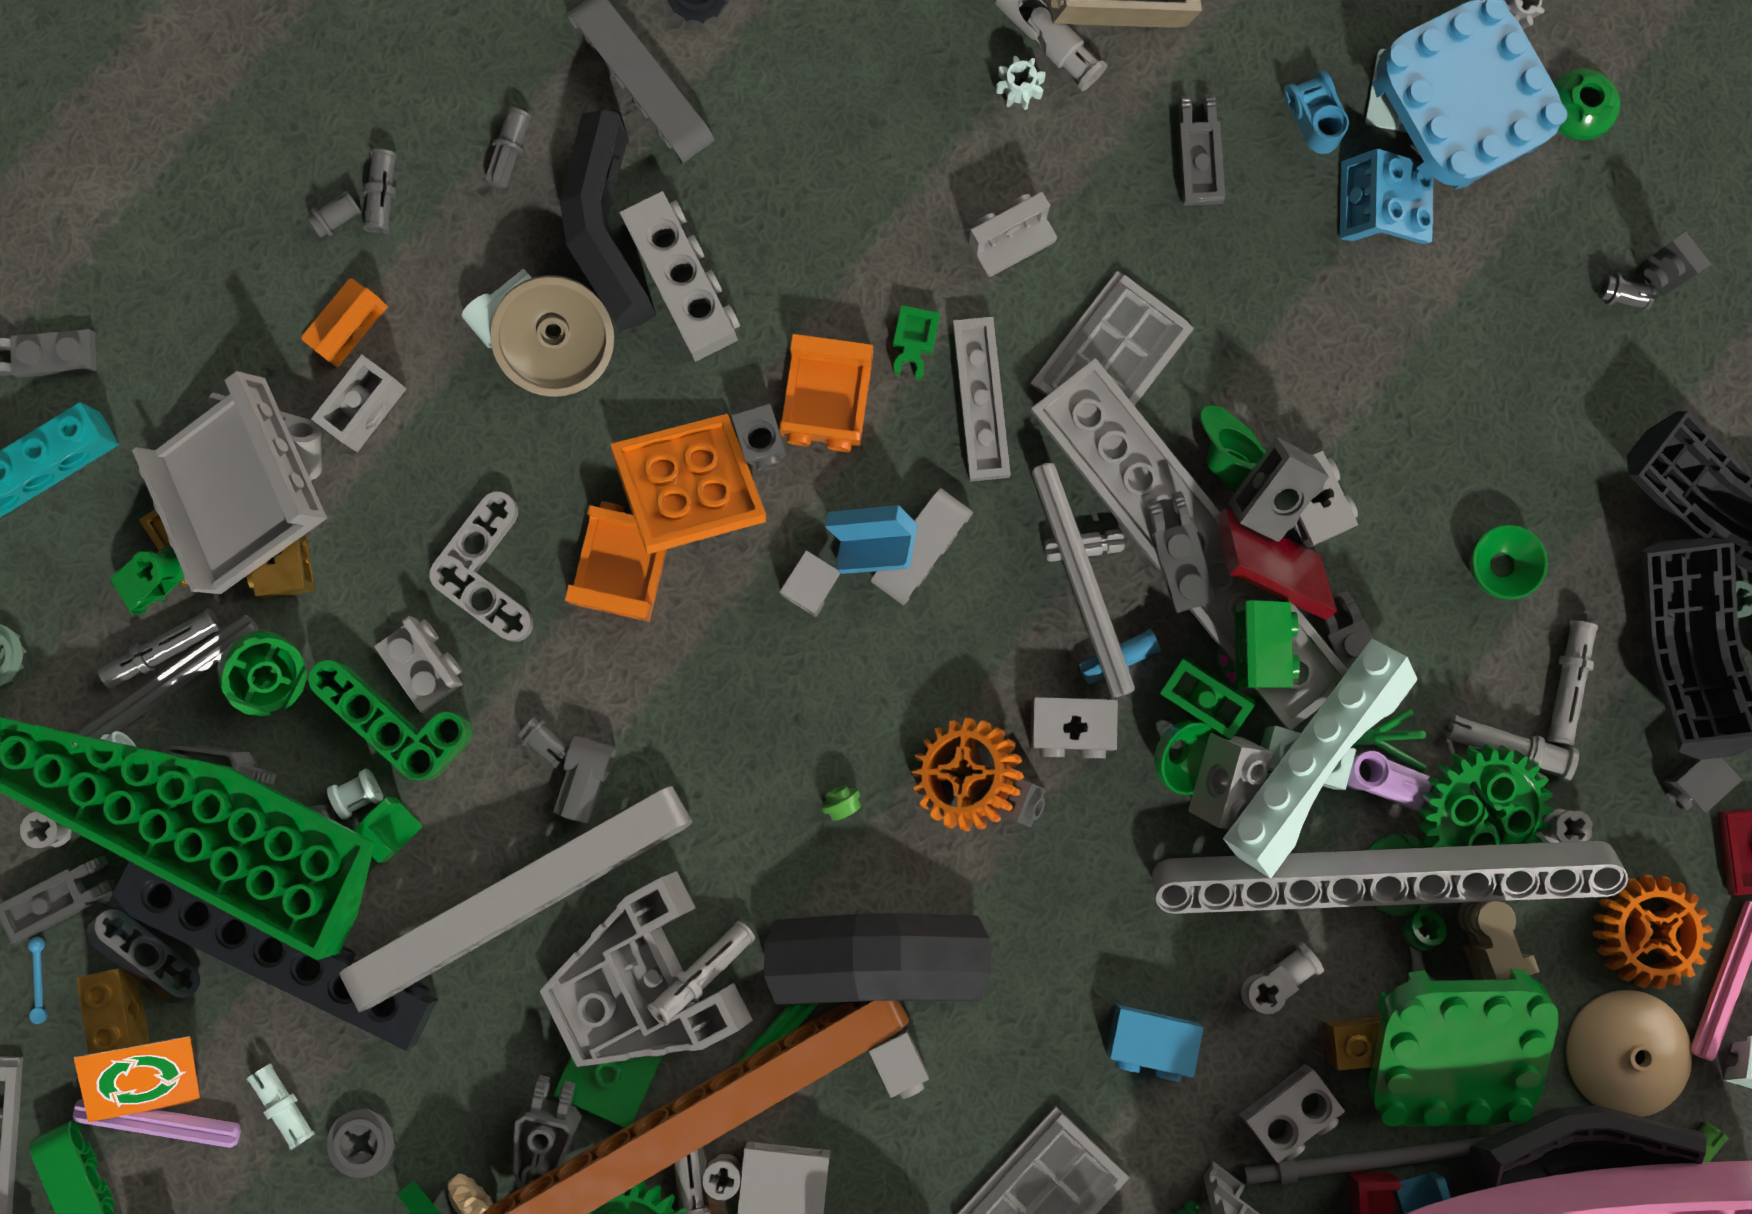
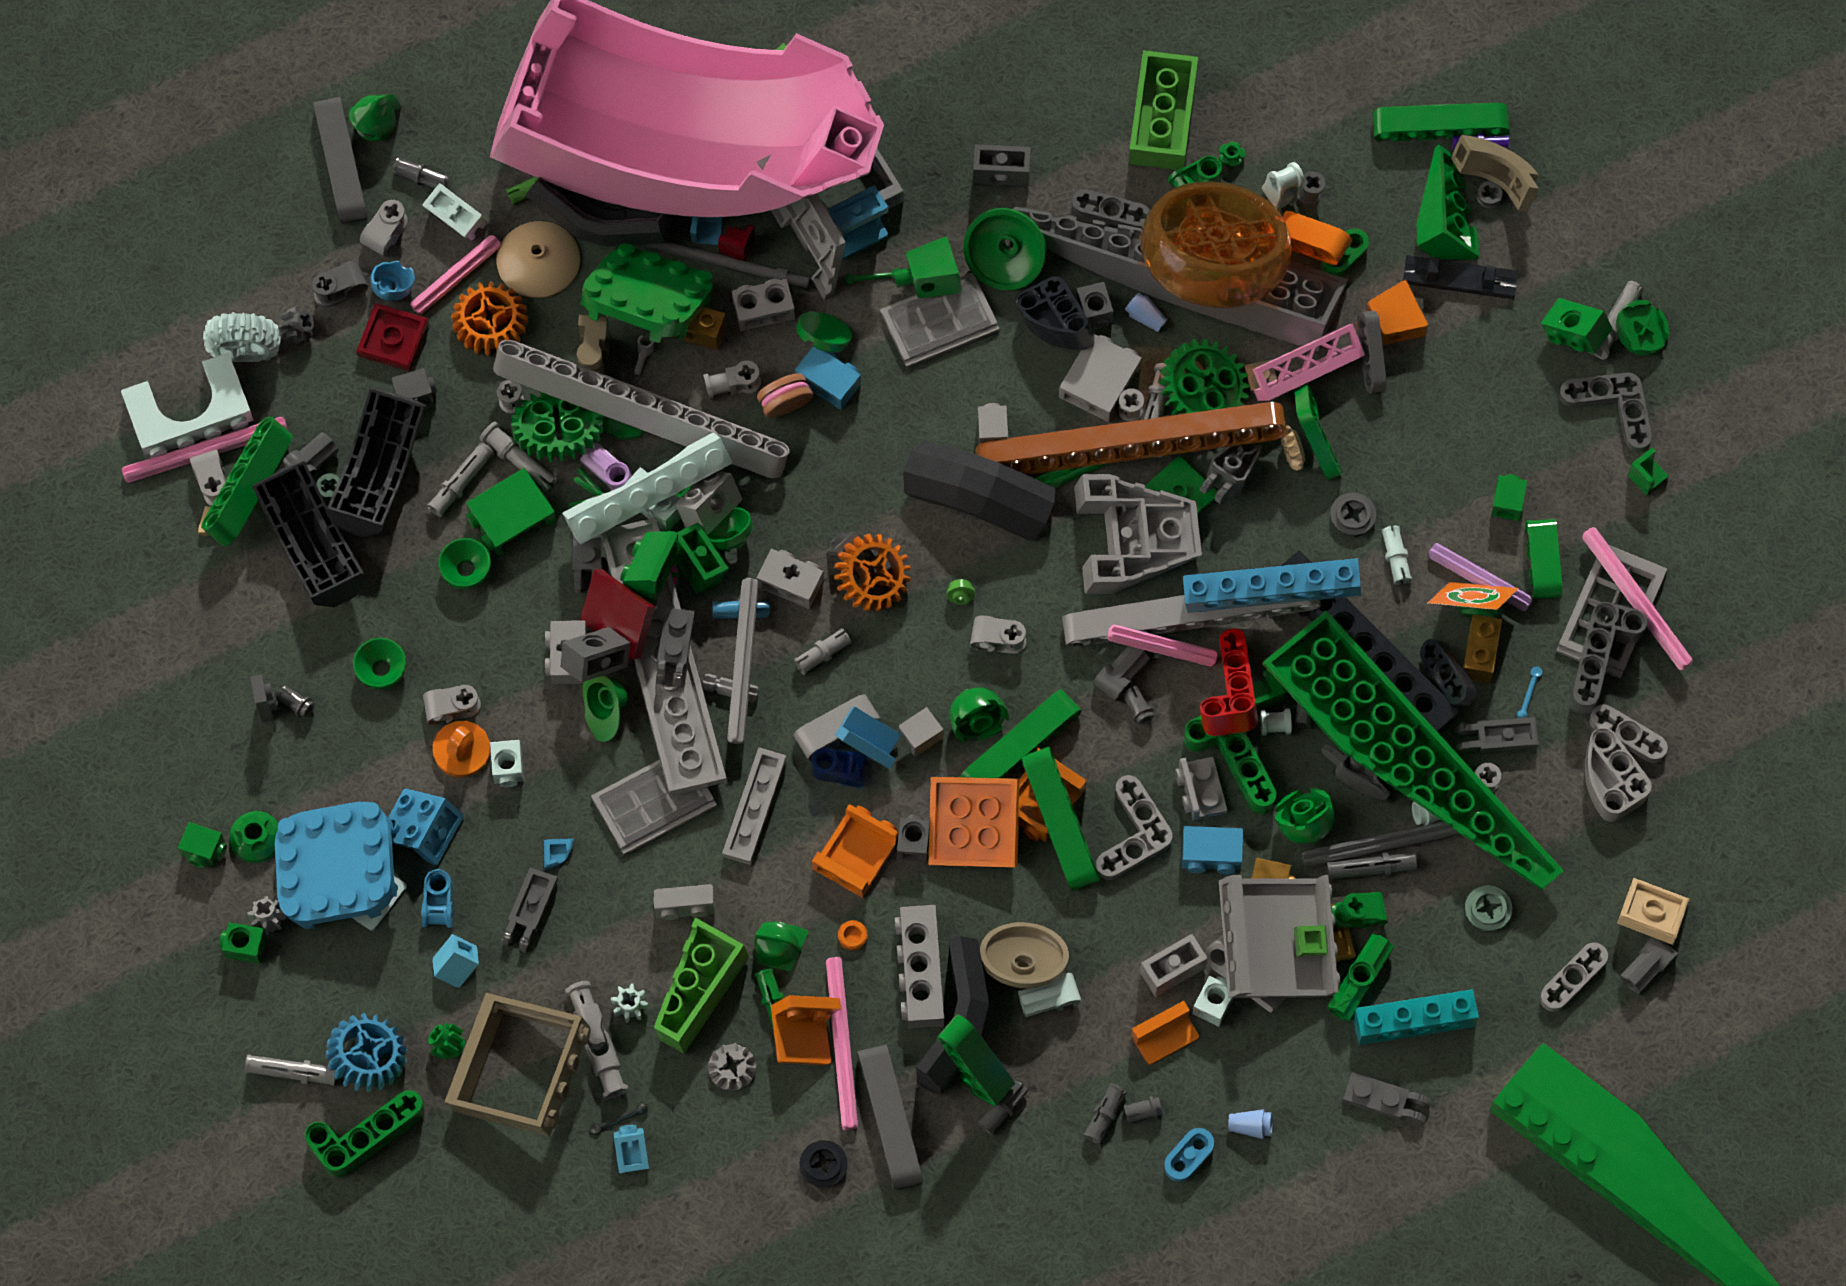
camera: 160 degrees left, 15 degrees down
(113, 518) = (1369, 963): none -> green piece
(190, 501) = (1310, 941): none -> bright green tile
(191, 252) = (1252, 1123): none -> light blue cone
(254, 183) = (1188, 1155): none -> dark azure plate
(285, 371) = (1205, 1009): none -> light aqua brick
(371, 582) = (1212, 849): none -> dark azure brick
(399, 965) = (1272, 585): none -> dark azure brick
(422, 817) = (1237, 709): none -> red beam
(541, 833) = (1162, 645): none -> bright pink axle
(544, 148) = (977, 1062): none -> green beam
(578, 534) = (1060, 818): none -> green beam
(672, 624) = (1025, 738): none -> green beam
(688, 985) = (1105, 516): light grey pin -> none
(739, 147) = (842, 1046): none -> bright pink axle
(749, 638) = (980, 709): none -> green cylinder
(775, 760) = (995, 634): none -> light grey piece
(785, 287) = (852, 935): none -> orange tile
(789, 129) = (802, 1029): none -> orange bracket
(847, 162) = (767, 981): none -> green pin
(861, 80) = (725, 1078): none -> light grey gear
(872, 239) = (778, 944): none -> green piece
(892, 489) = (841, 767): none -> clear blue piece
(915, 335) = (780, 865): green plate -> none
(943, 158) = (699, 983): none -> bright green wedge
(987, 643) = (822, 651): none -> light grey pin
(1190, 1105) = (824, 331): none -> green tile
(1199, 984) = (784, 395): none -> nougat head
(1202, 240) = (556, 852): none -> dark azure tile
(1258, 47) = (455, 961): none -> medium azure panel
(1315, 337) = (502, 752): none -> light aqua brick
(1386, 321) = (461, 749): none -> orange tile
(1413, 936) = (624, 367): green bush -> none
(1430, 367) = (448, 704): none -> light grey piece
(1486, 662) = (508, 510): none -> green panel
(1563, 370) = (379, 650): none -> green piece
(1644, 57) = (202, 845): none -> green brick

